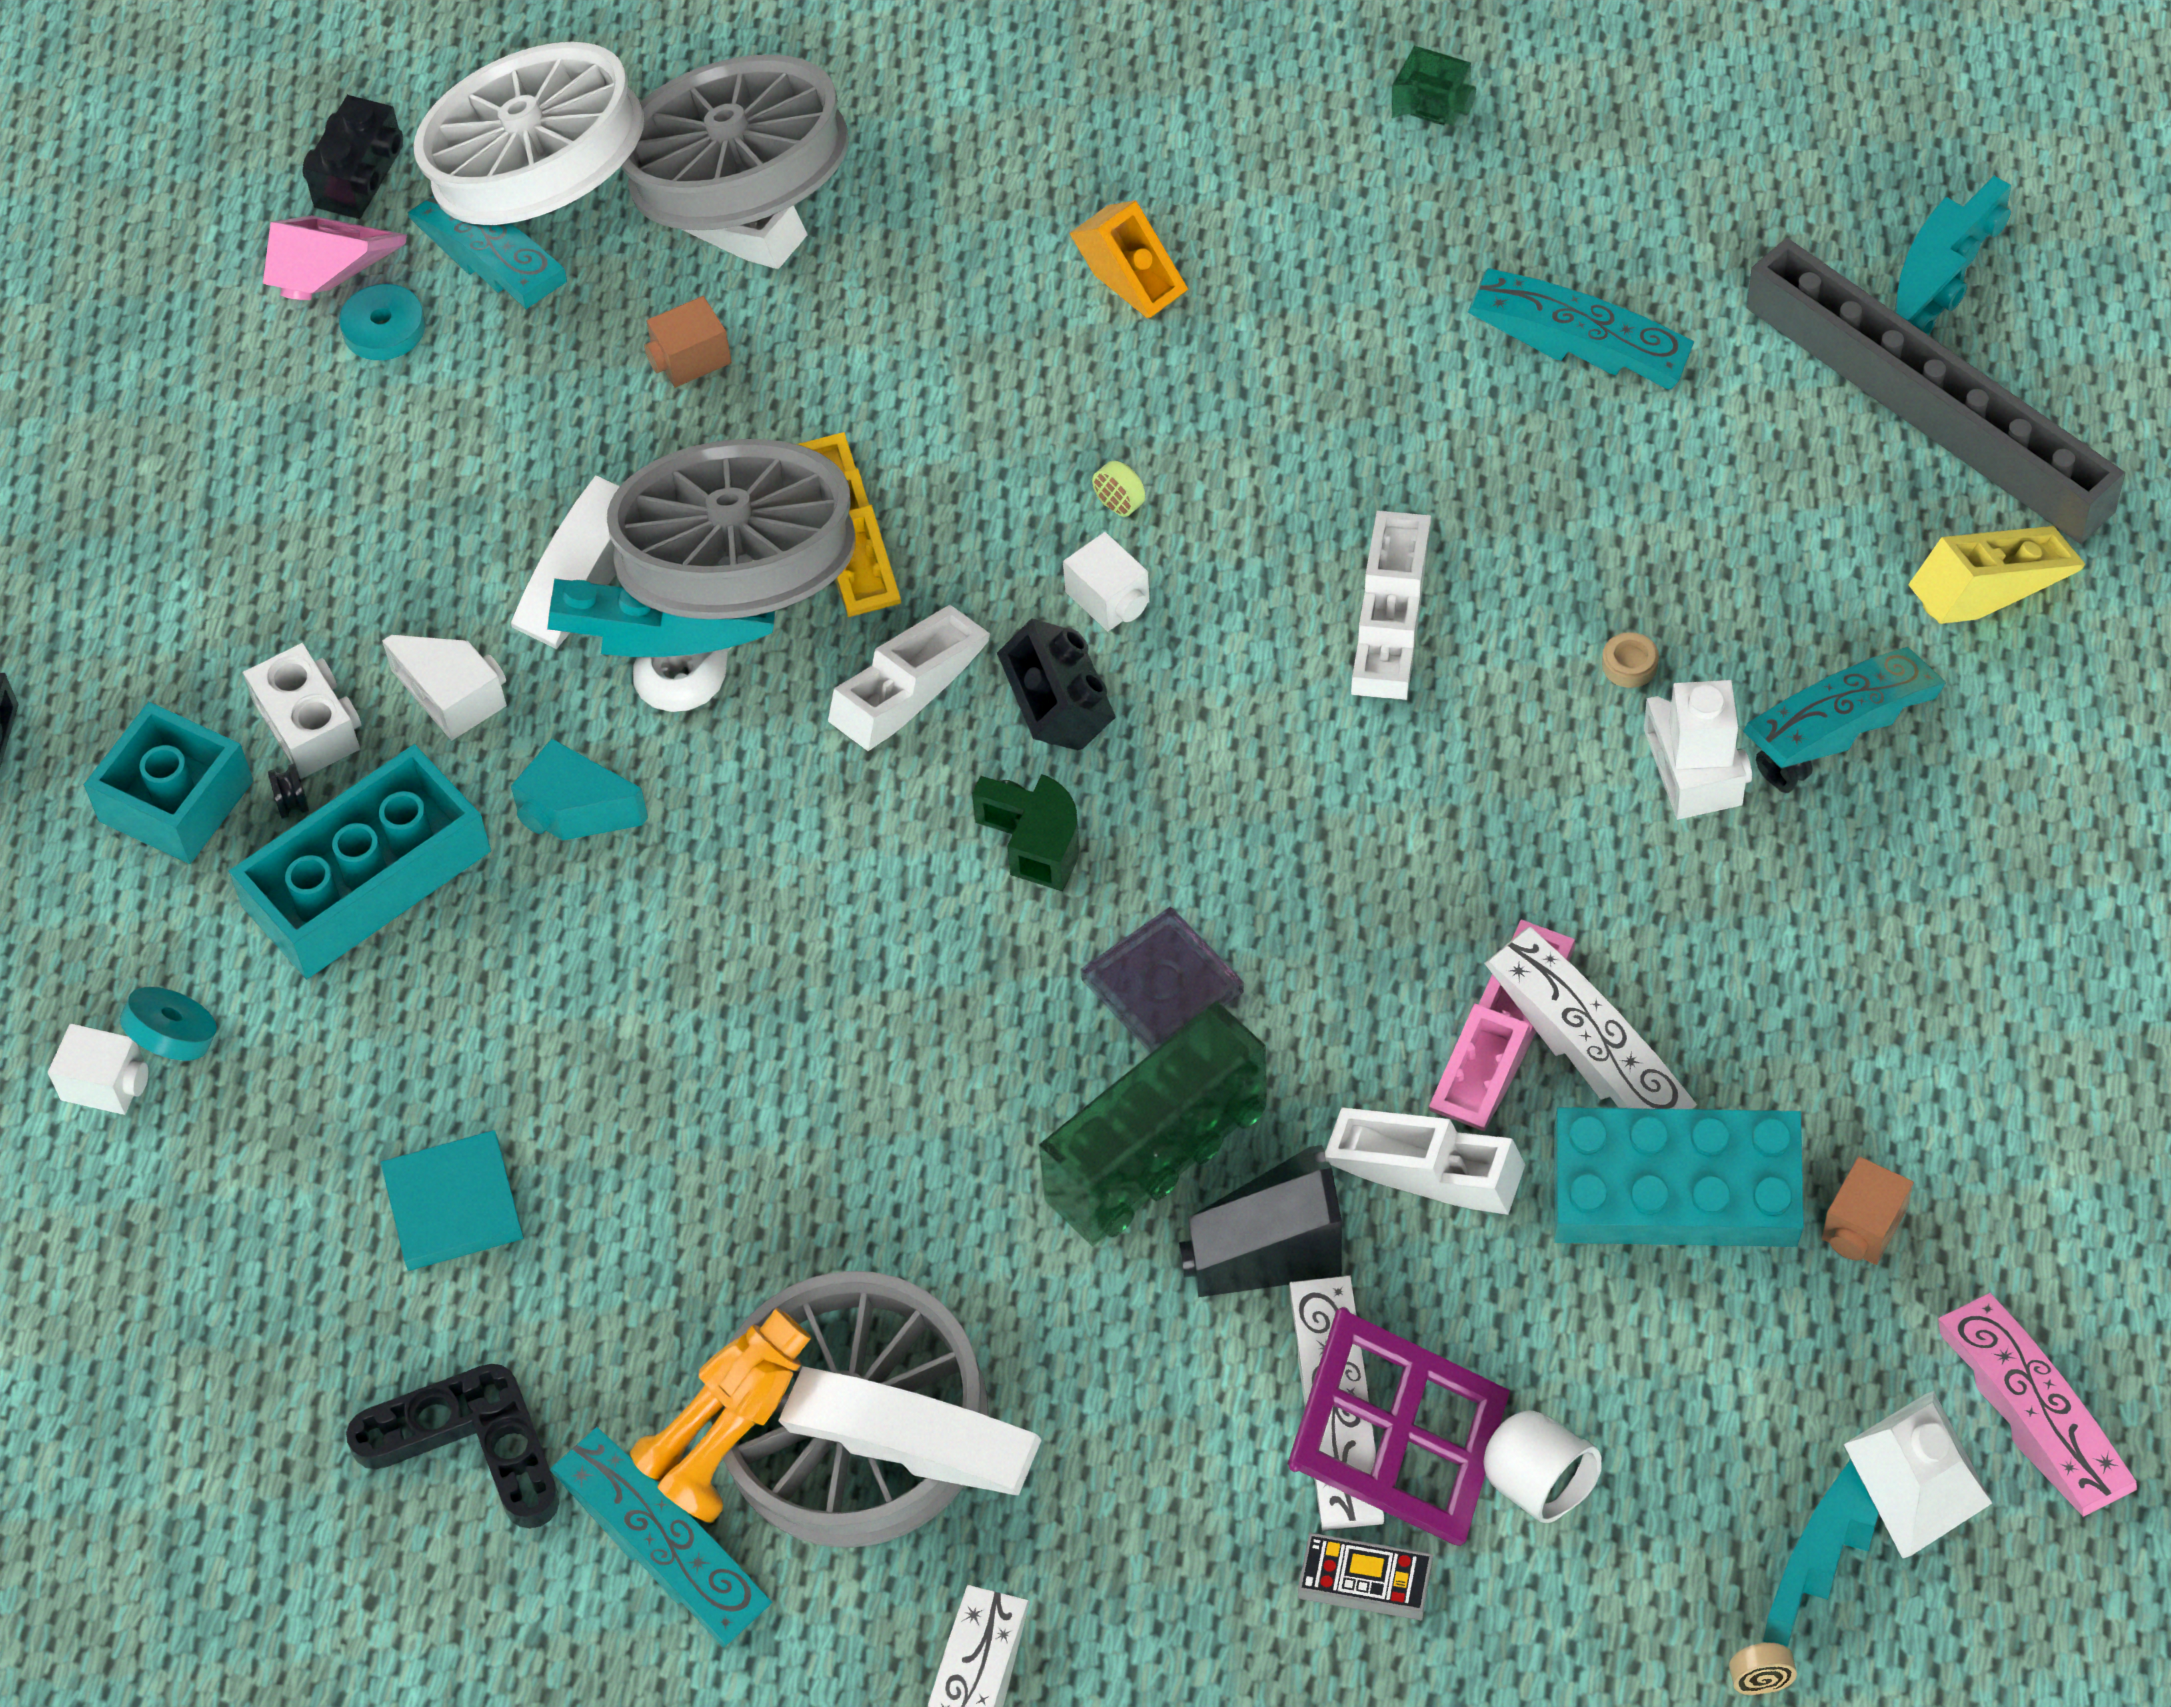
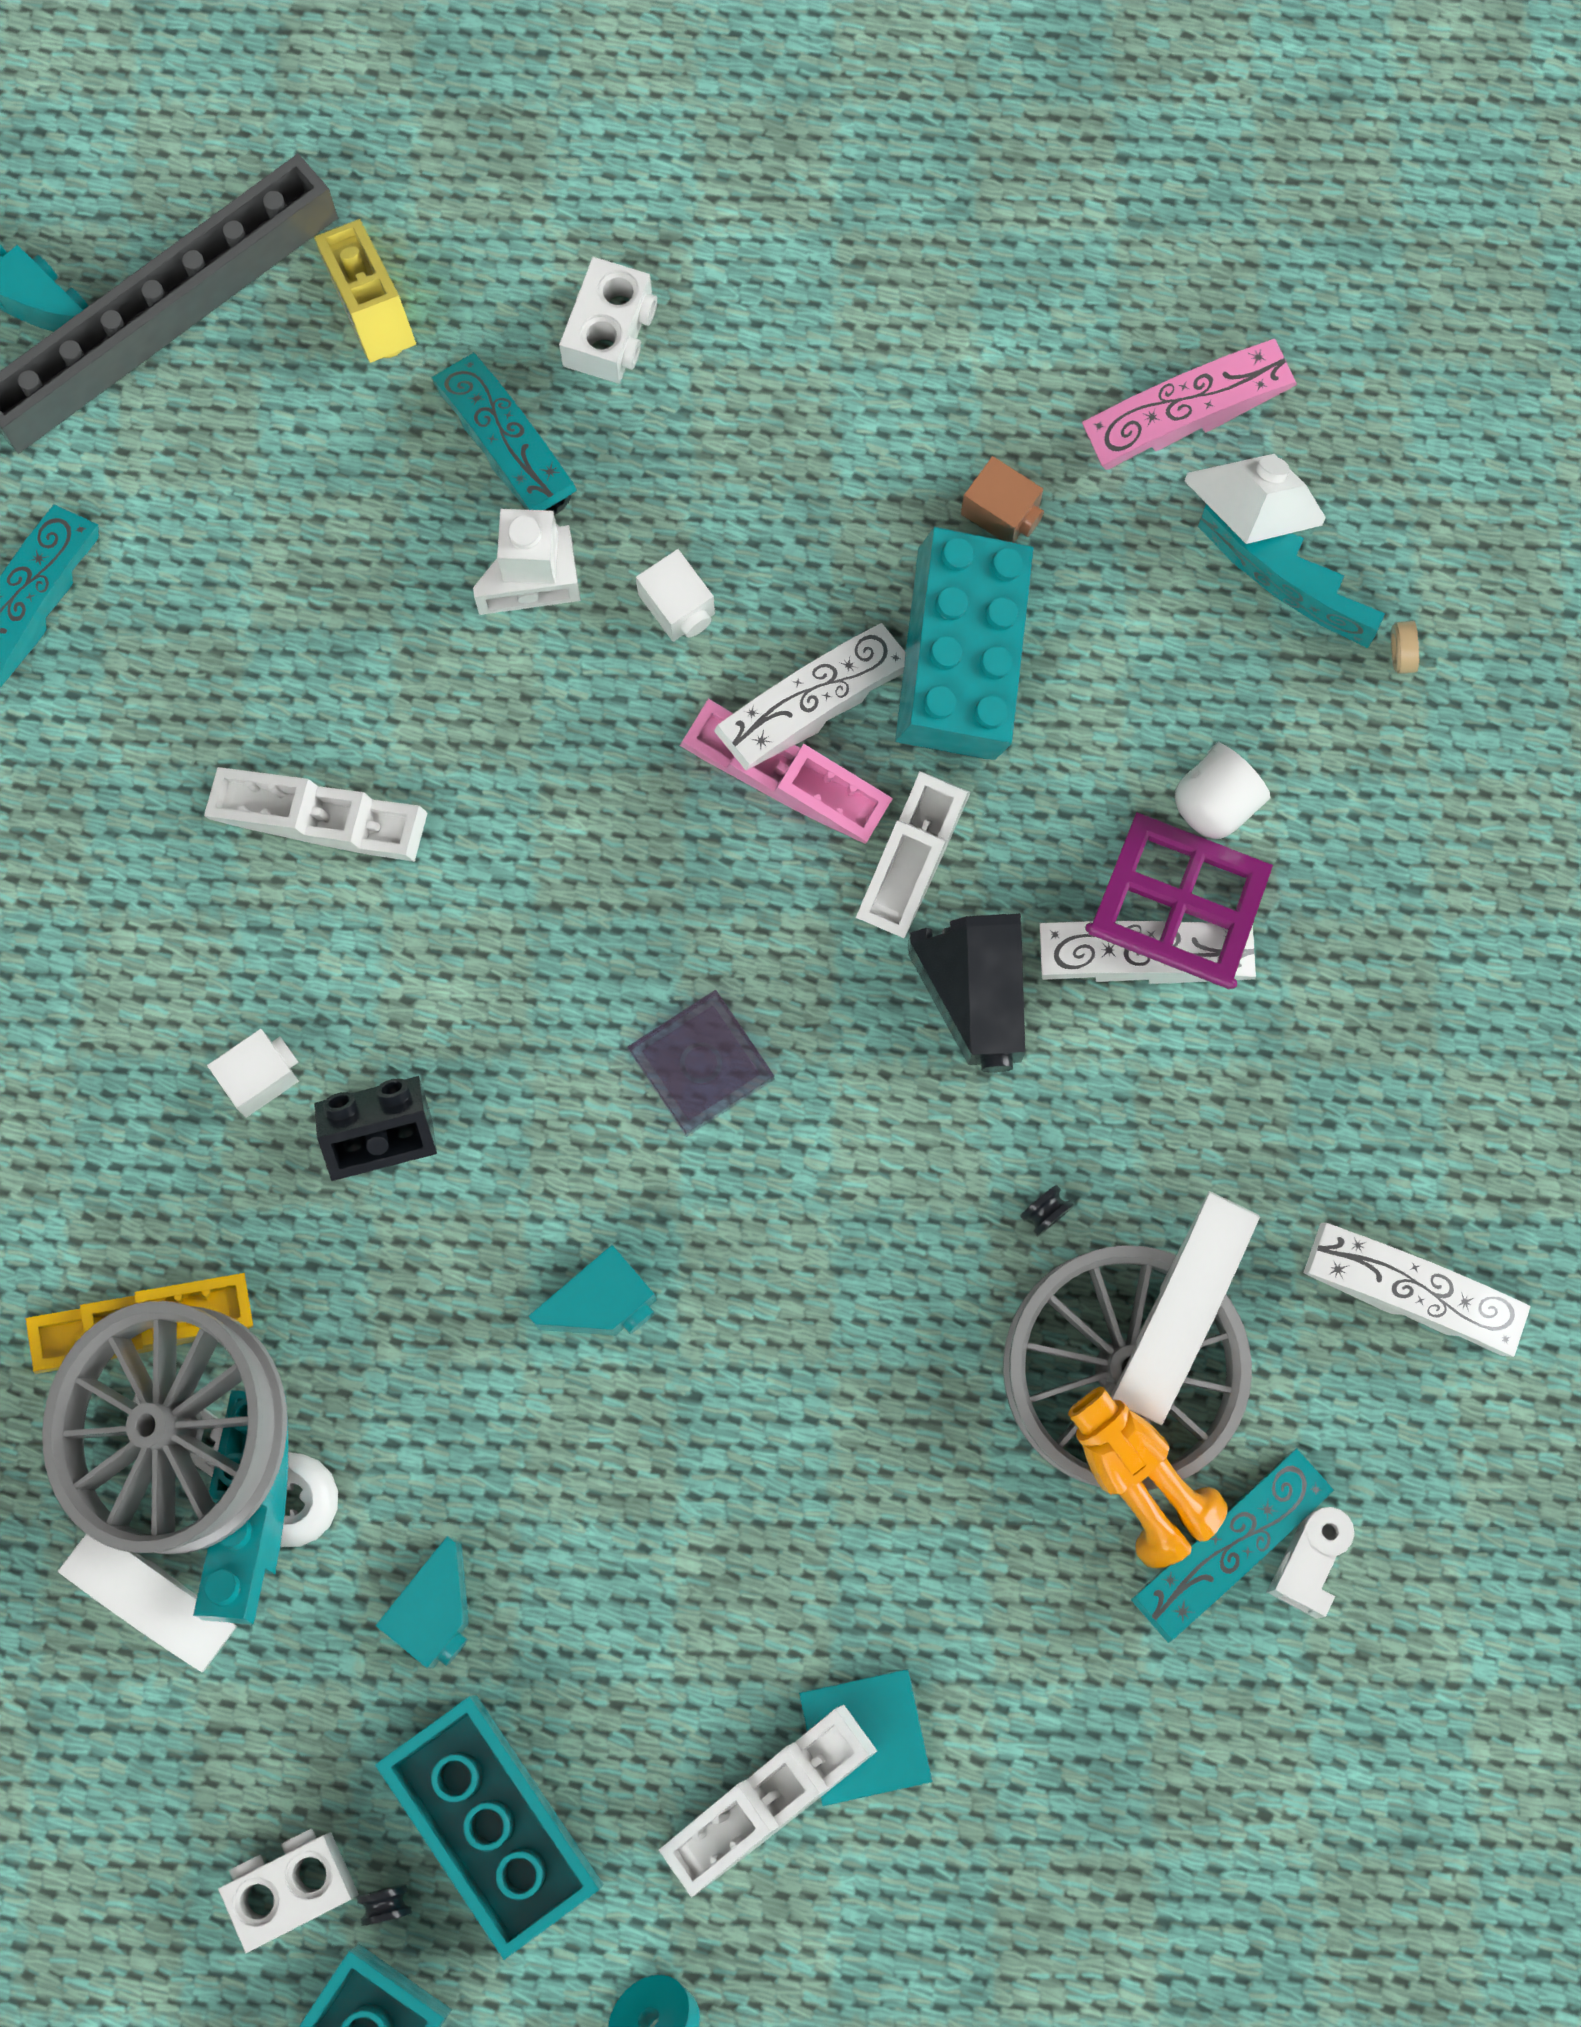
camera: 90 degrees left, 20 degrees up
(386, 1109) = (767, 1800): none -> white slope
(448, 680) = (273, 1735): white slope -> none
(486, 1420) = (1104, 1703): black beam -> none
(646, 1621) = (1309, 1560): none -> white leg
(897, 906) = (598, 1300): none -> teal slope
(905, 676) = (332, 1272): white slope -> none
(1025, 1323) = (1047, 1210): none -> black bush
(1041, 826) = (531, 1149): dark green brick -> none
(1119, 488) = (141, 1052): yellowish green tile -> none
(1155, 1124) = (875, 1072): clear green brick -> none
(1365, 1576) = (1298, 948): tile -> none
(1630, 660) = (406, 614): tan tile -> none
(1689, 896) = (676, 596): none -> white brick
(2009, 787) = (598, 320): none -> white brick

